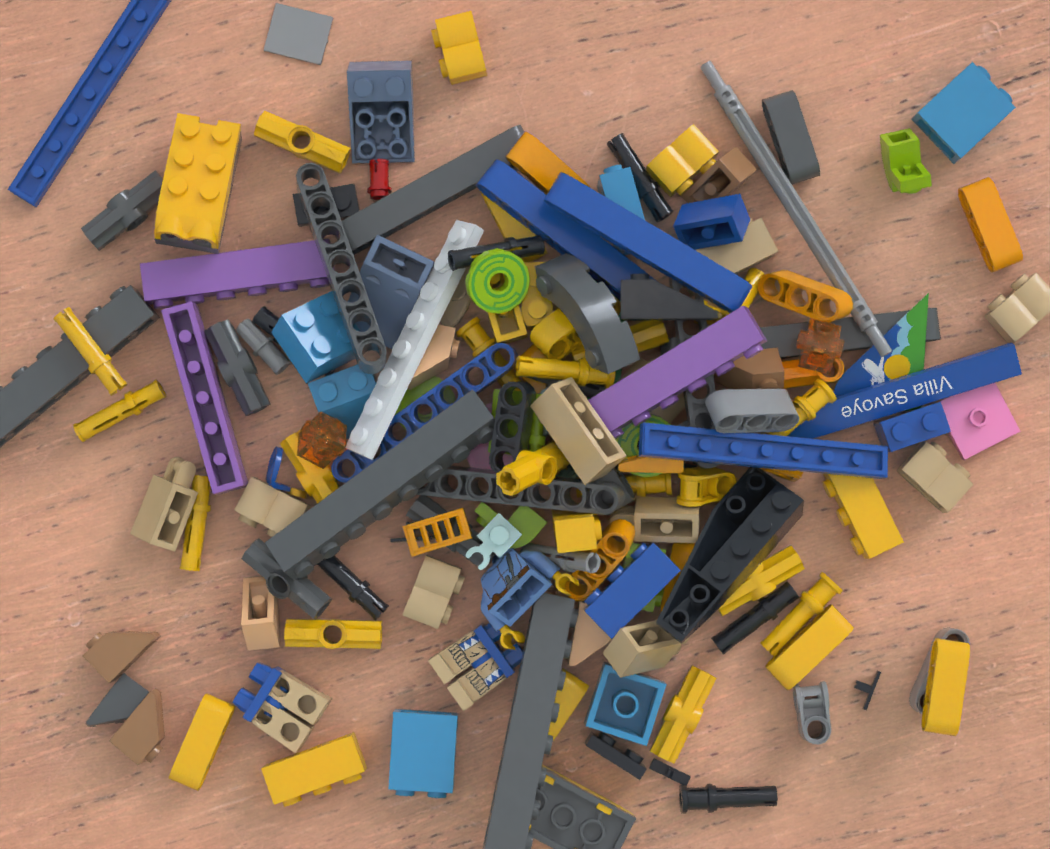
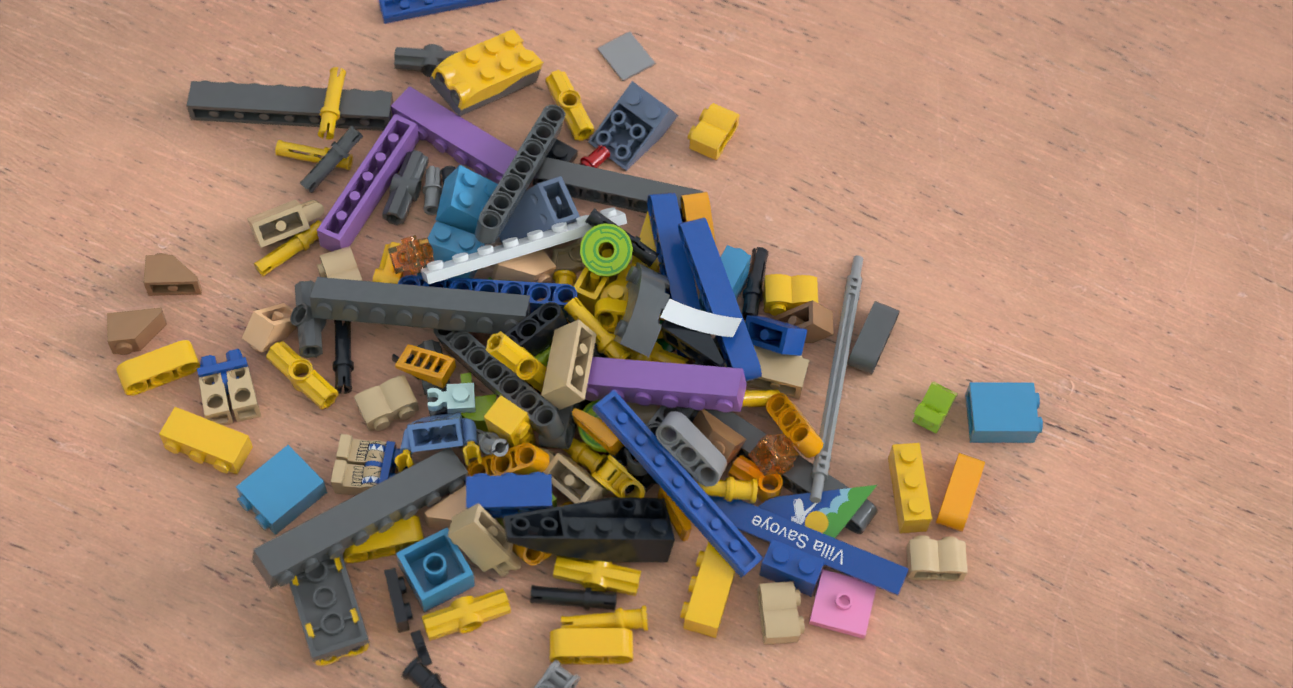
camera: 40 degrees right, 25 degrees down
(118, 702) = (133, 301): dark grey slope -> none
(146, 397) = (338, 151): none -> dark grey pin
(272, 471) = (377, 248): blue piece -> none
(657, 284) = (700, 320): none -> white sticker
(946, 261) = (909, 488): none -> yellow brick

